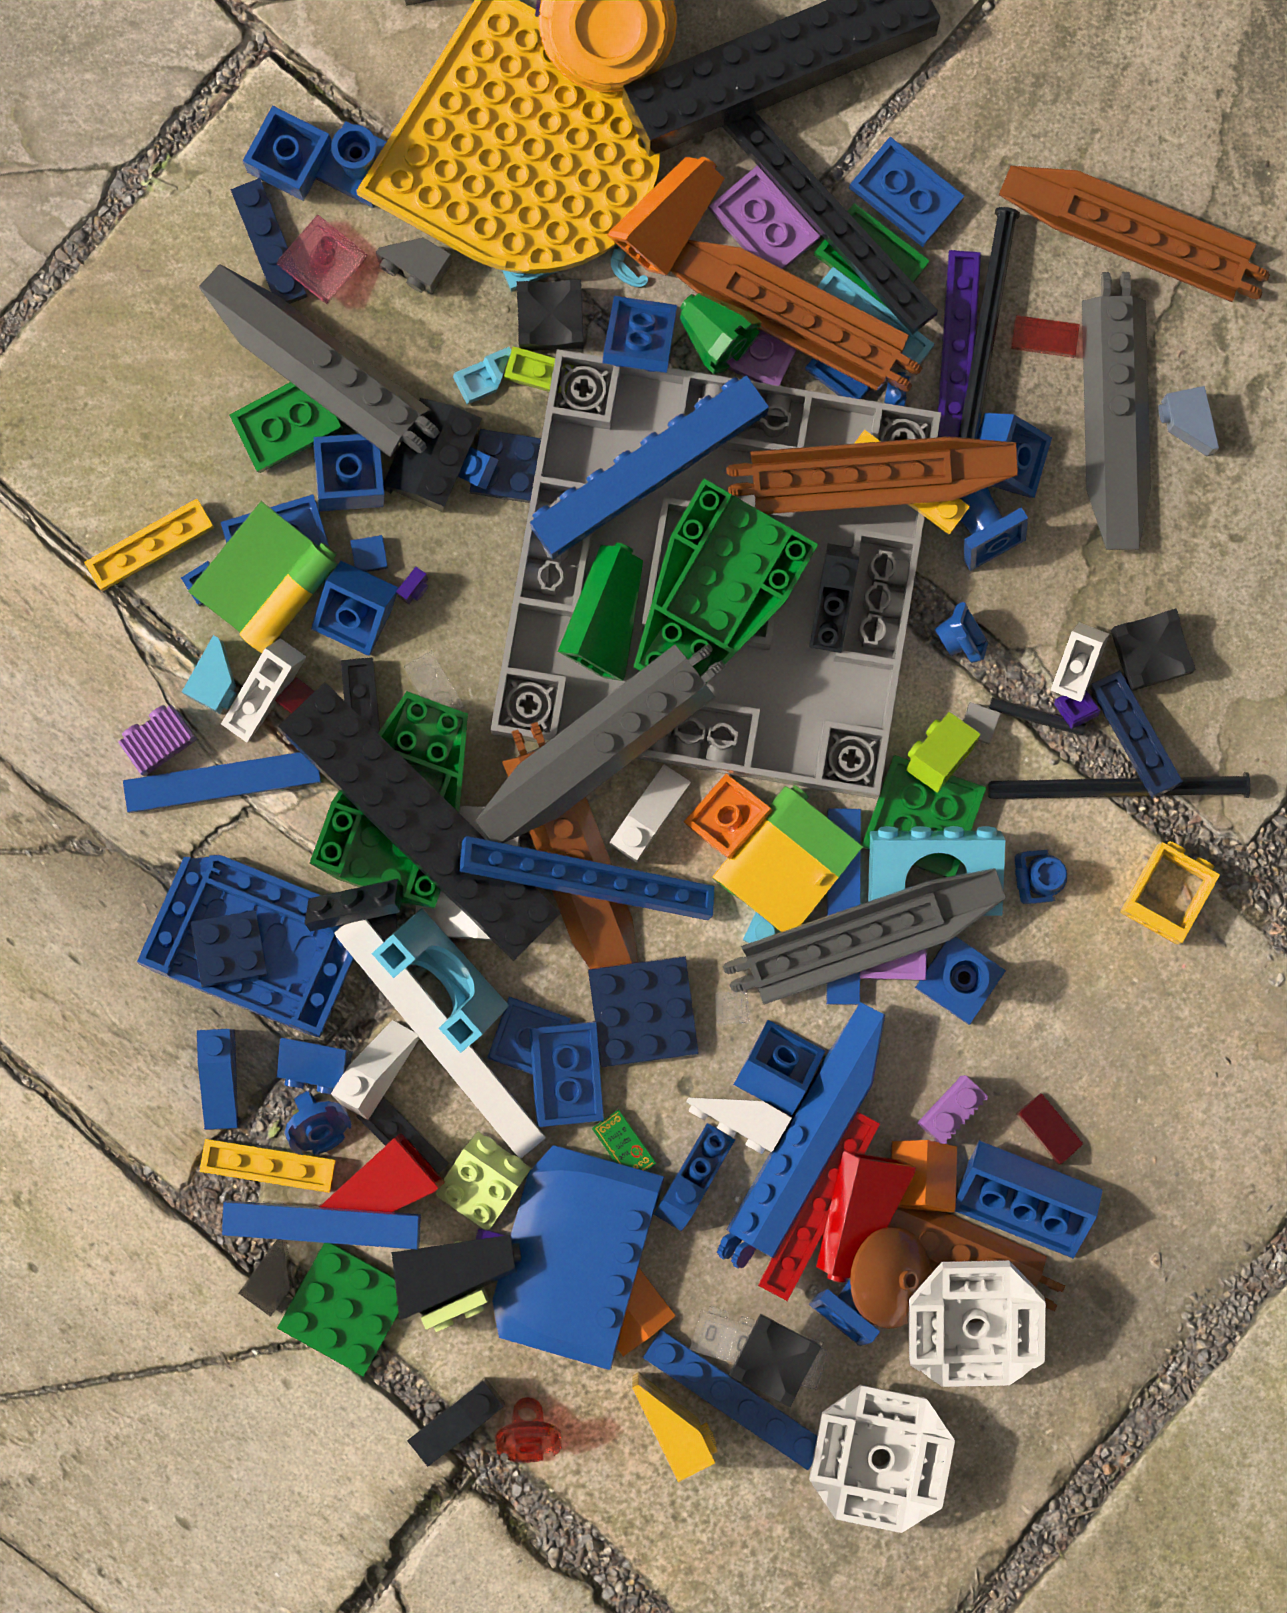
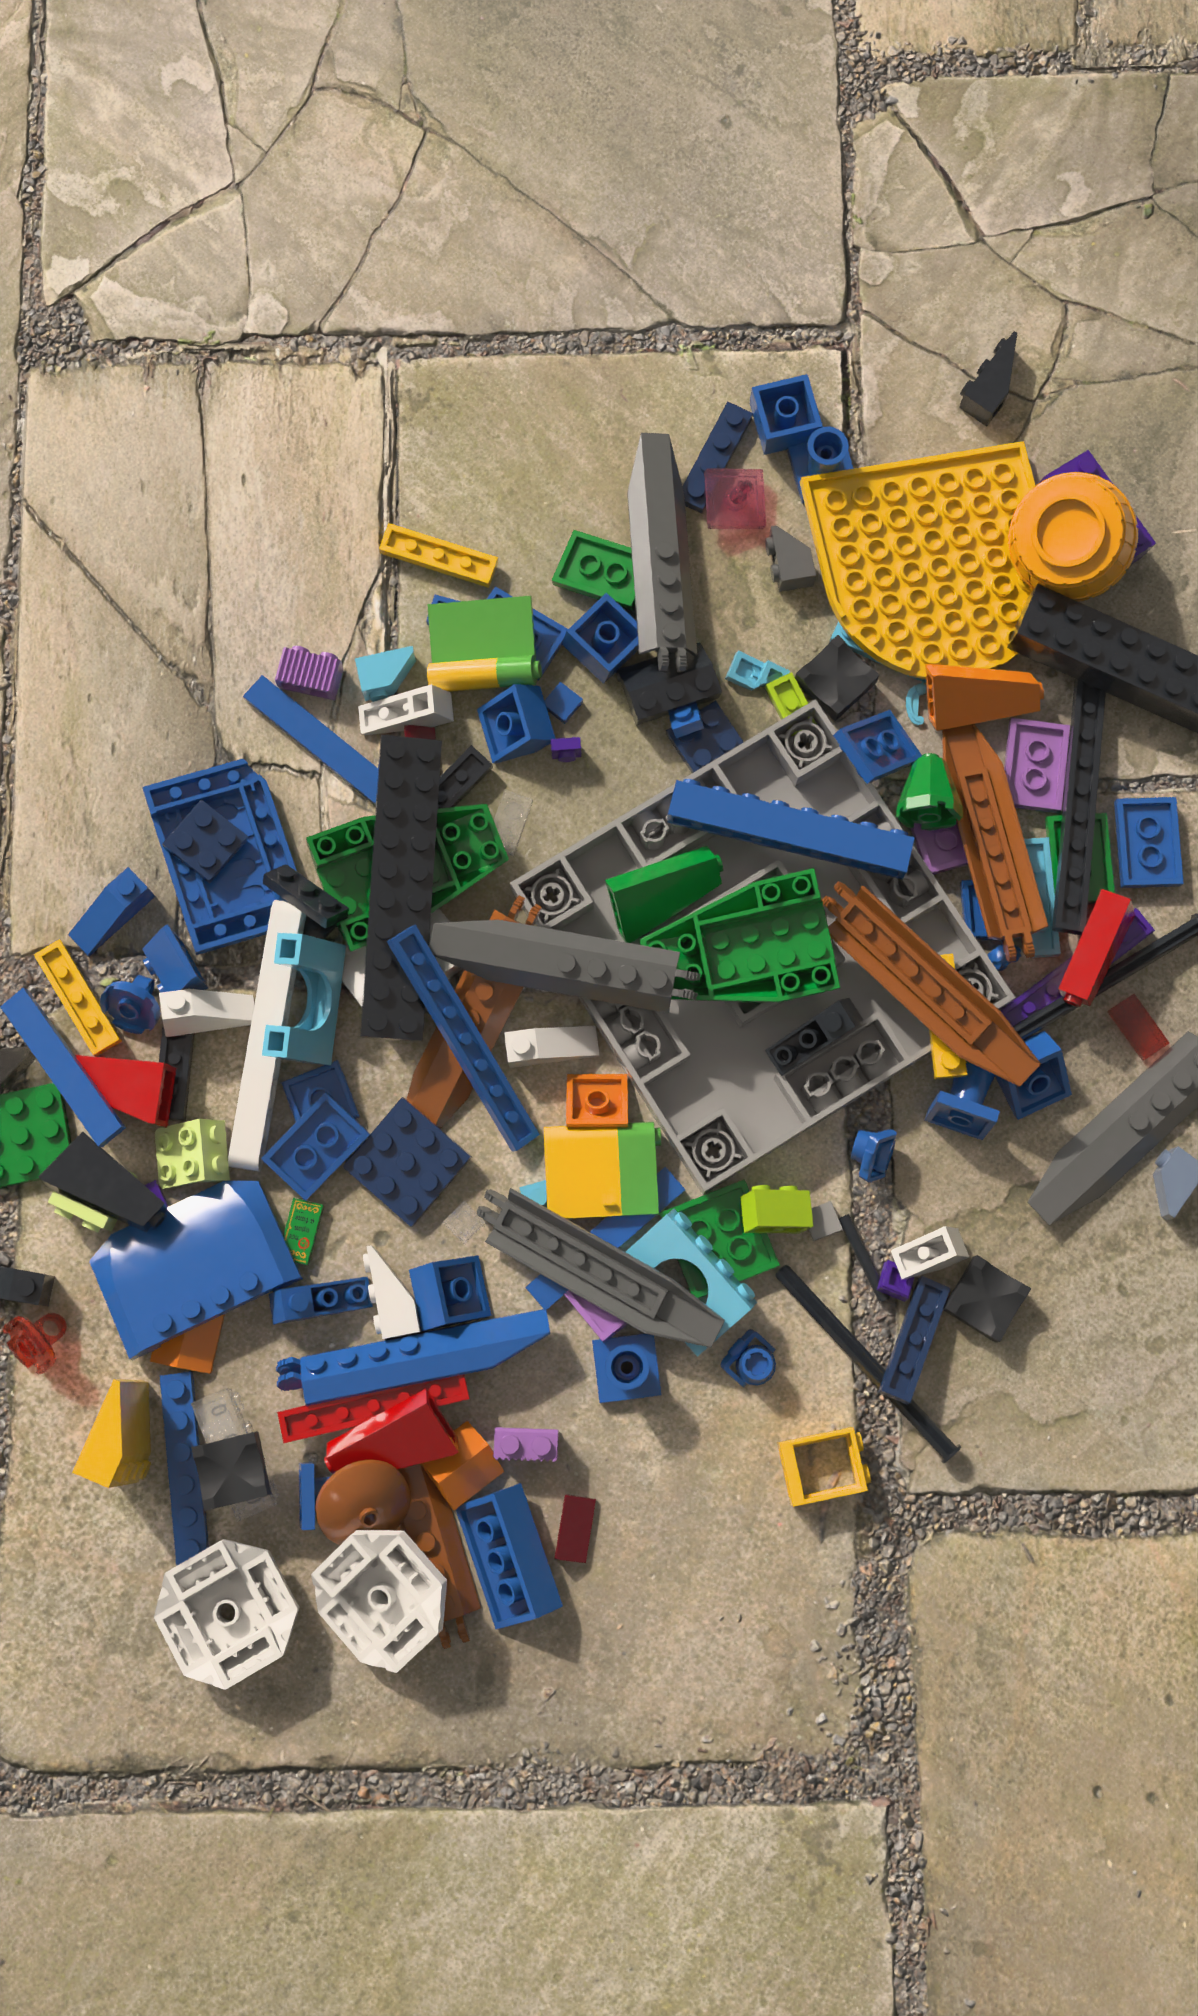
camera: 50 degrees right, 5 degrees down
(959, 313) = (1096, 948): none -> red slope

